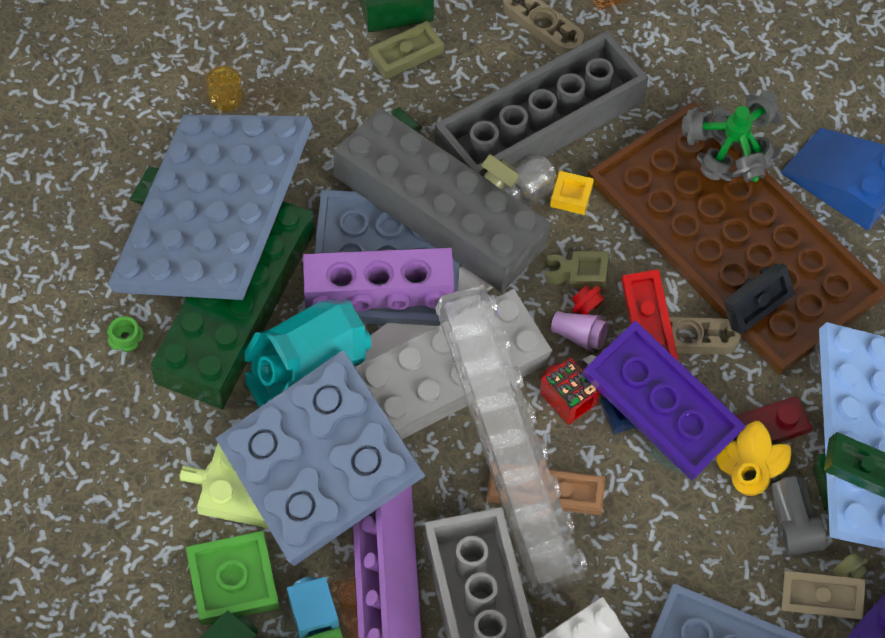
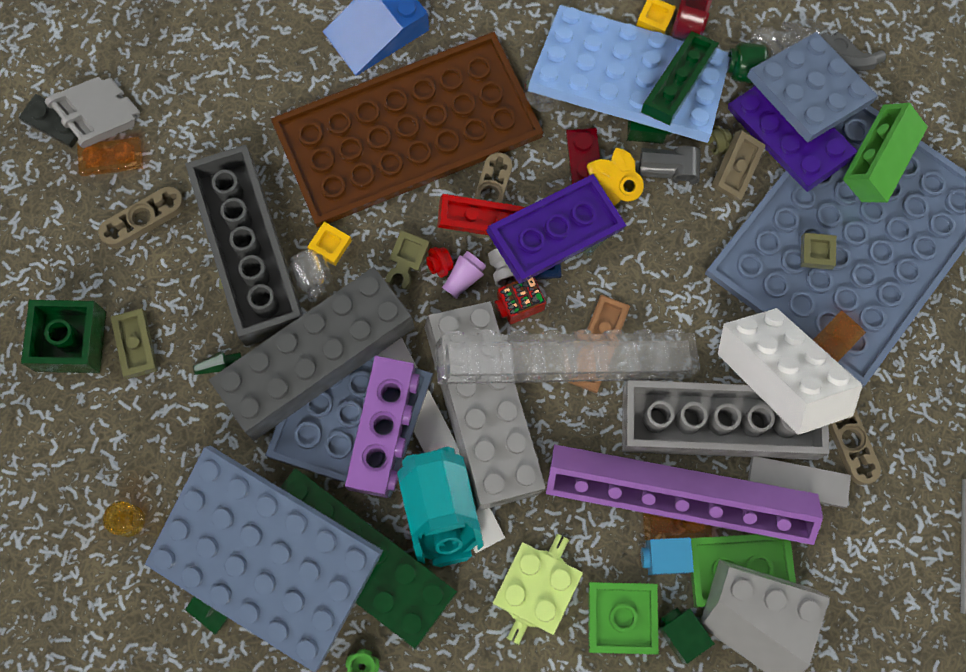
camera: 75 degrees left, 15 degrees up
(319, 458) = (549, 518): sand blue piece -> none
(500, 172) = (316, 293): olive plate -> none
(735, 127) = (333, 86): dark grey plant -> none
(758, 297) = (481, 124): black plate -> none

